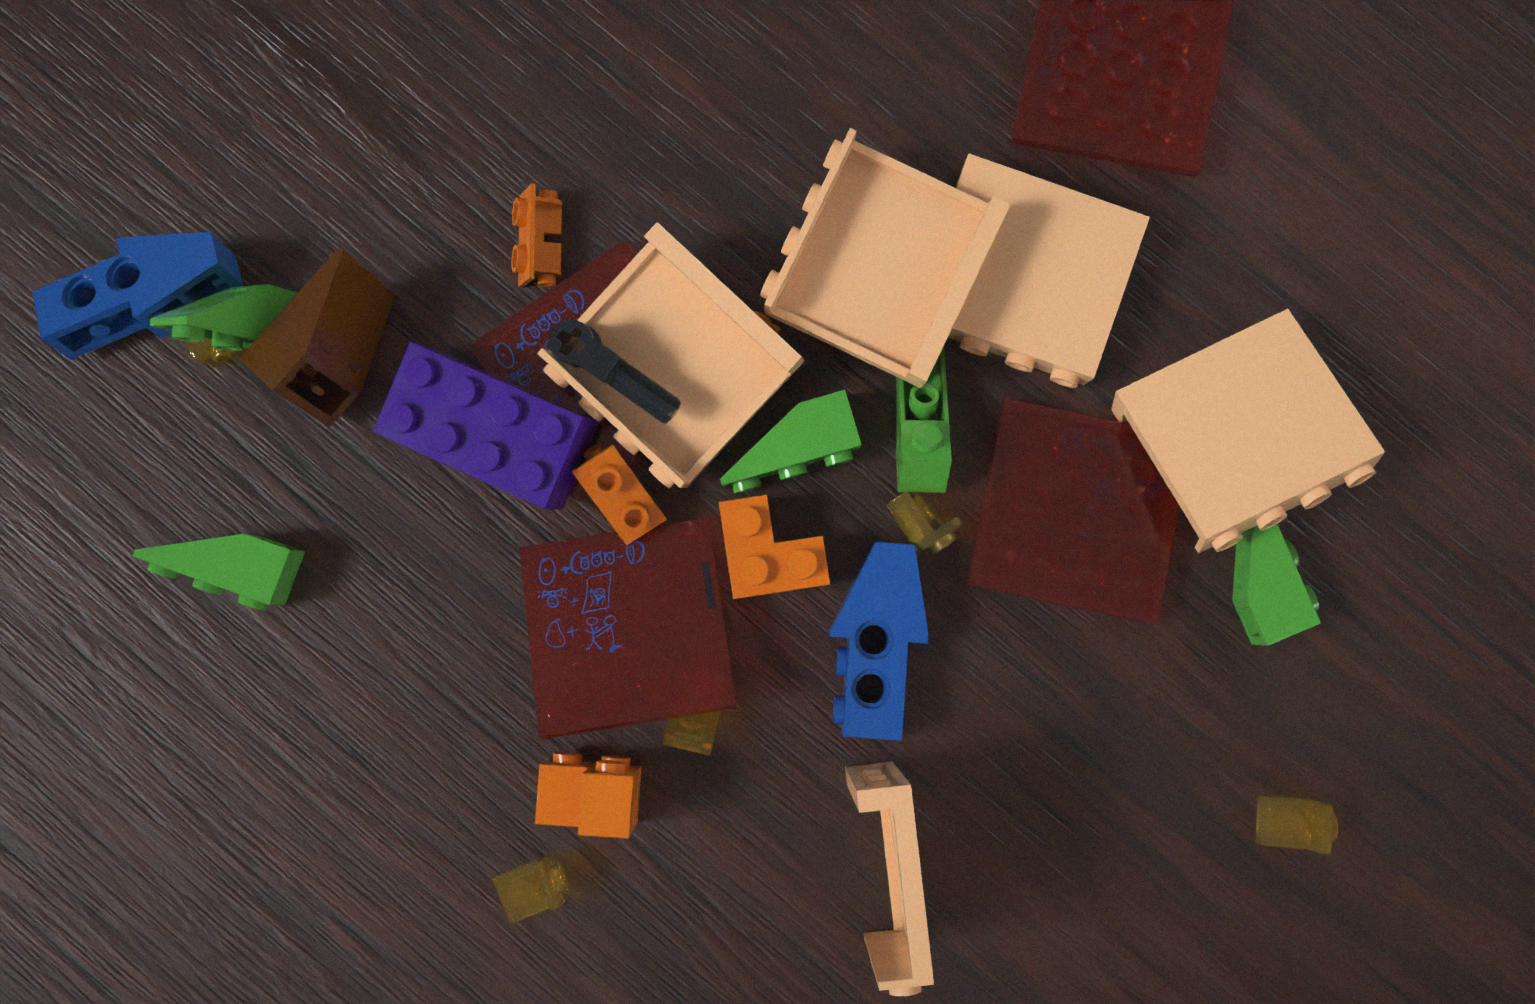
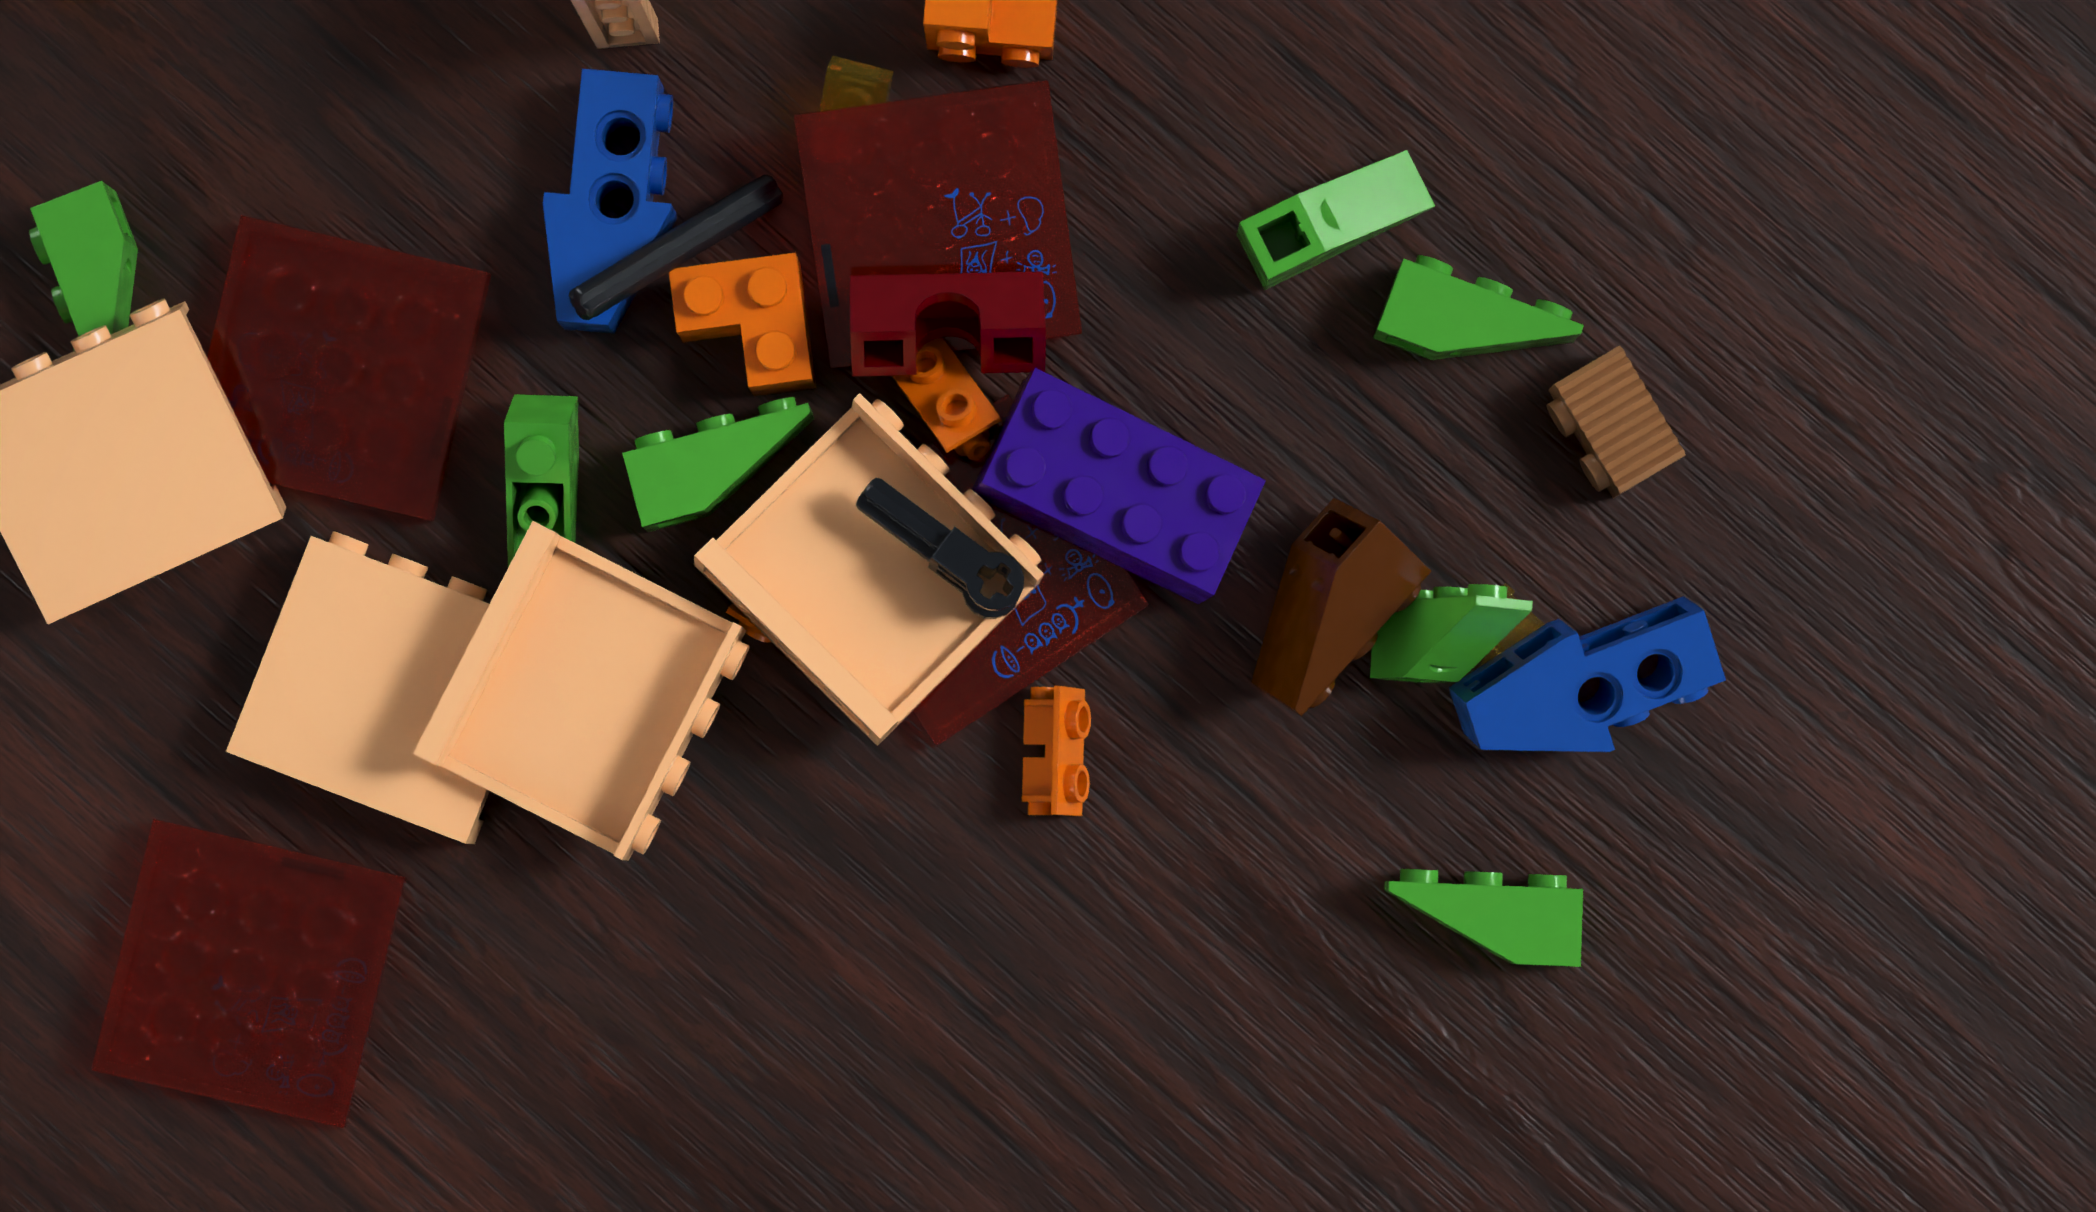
camera: 175 degrees left, 0 degrees up
(117, 486) = (1614, 423): none -> medium nougat brick
(189, 118) = (1513, 922): none -> bright green slope
(328, 636) = (1333, 218): none -> bright green slope
(577, 555) = (990, 310): none -> dark red arch
(826, 601) = (675, 247): none -> black axle
(914, 520) = (556, 359): clear yellow bracket -> none

